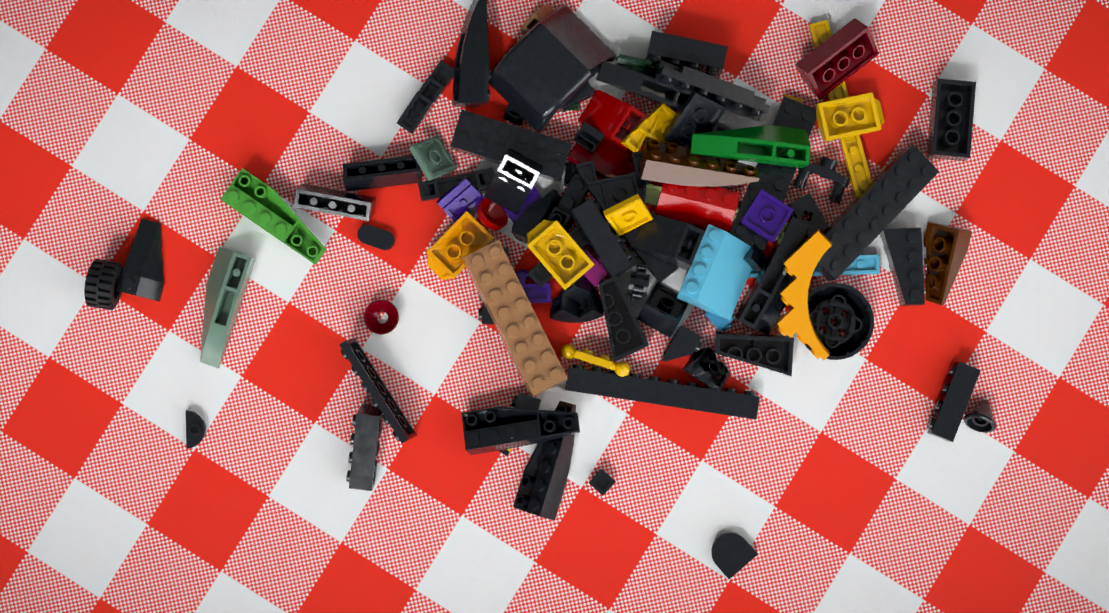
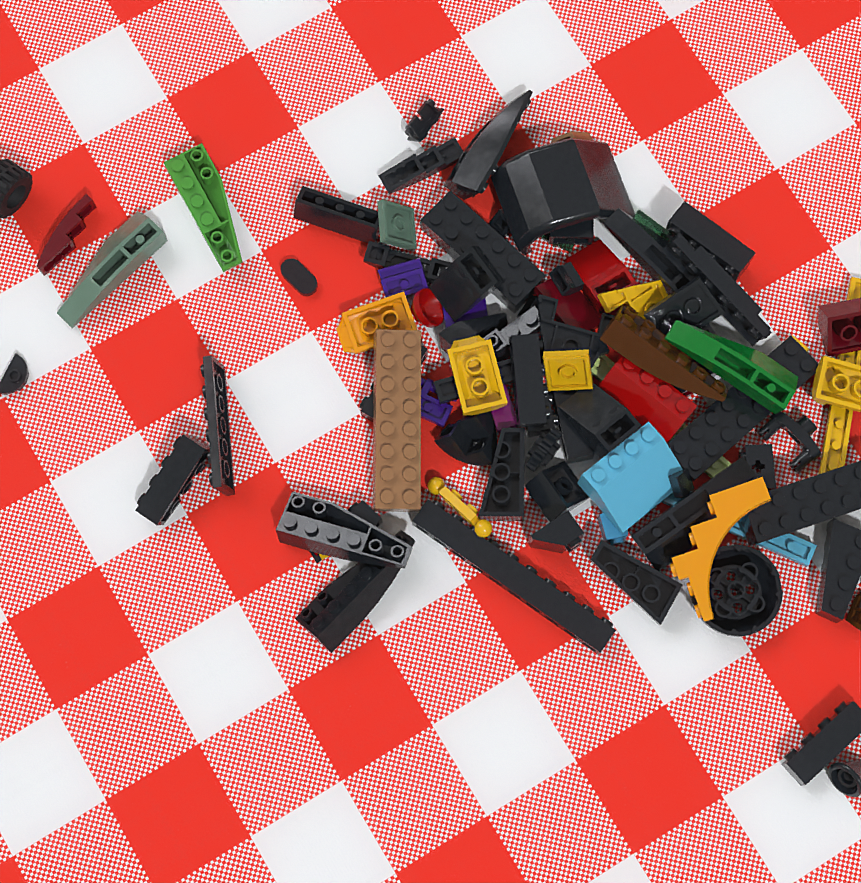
camera: 30 degrees right, 10 degrees down
(144, 264) = (53, 193): black wedge -> none
(171, 303) = (61, 241): none -> dark red slope
(334, 202) = (275, 220): black brick -> none
(374, 309) = (258, 346): dark red piece -> none
(409, 67) = (418, 128): none -> black hinge
(602, 482) = (402, 638): black plate -> none
(707, 368) = (574, 574): black slope -> none
(731, 553) = (503, 786): black tile -> none
(767, 216) = (714, 443): dark purple plate -> none

